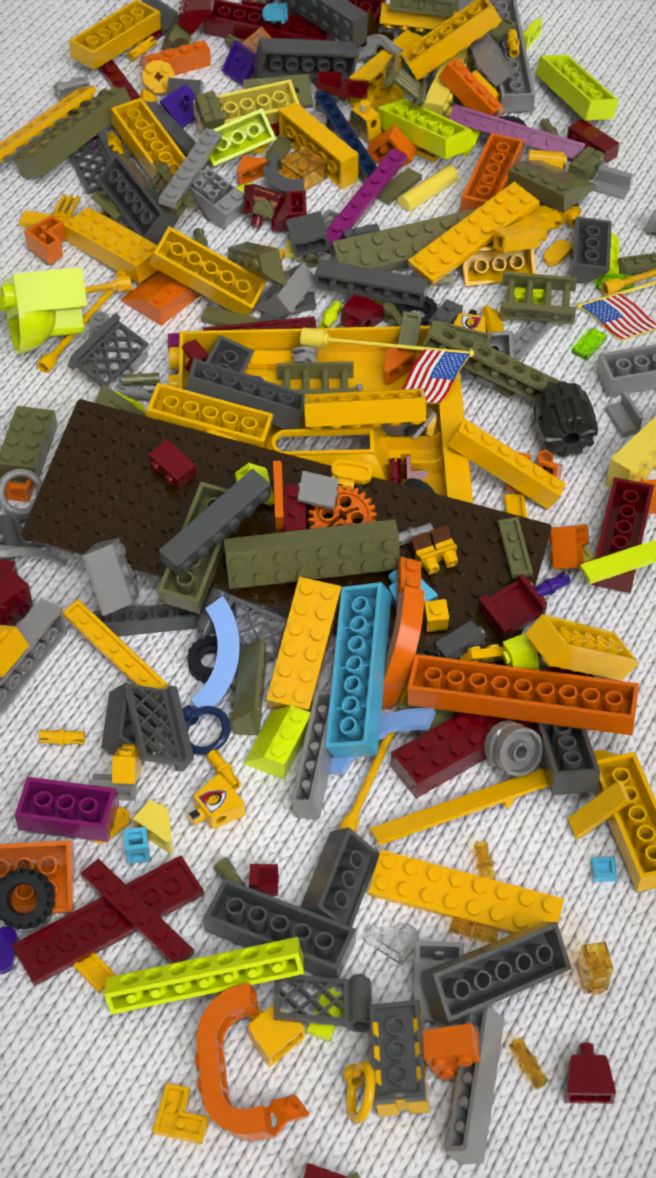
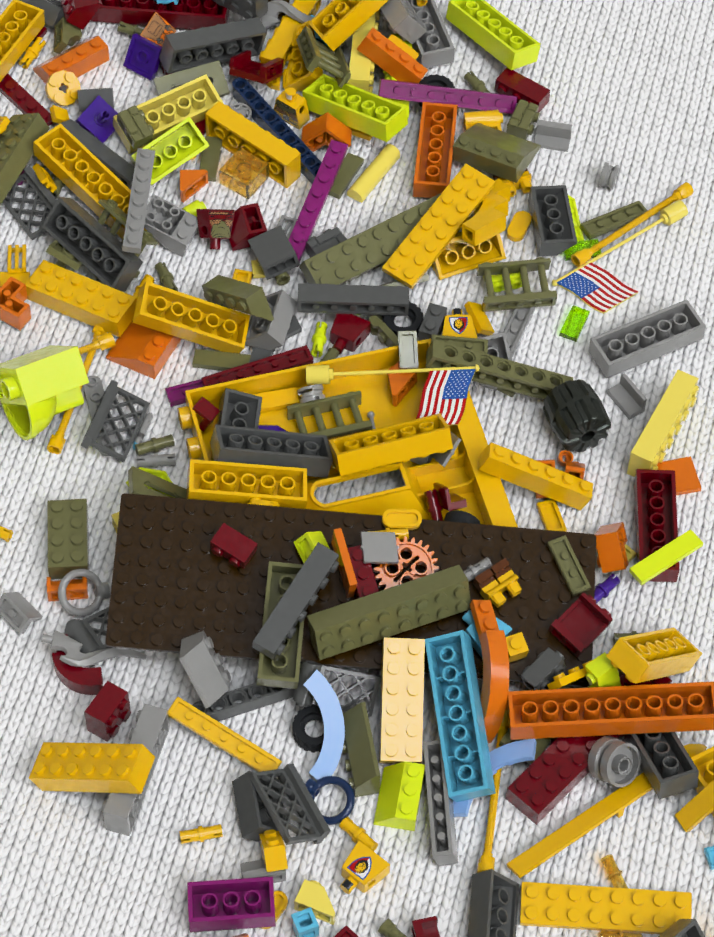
camera: 15 degrees left, 5 degrees up
(276, 181) = (222, 196): dark grey arch -> none

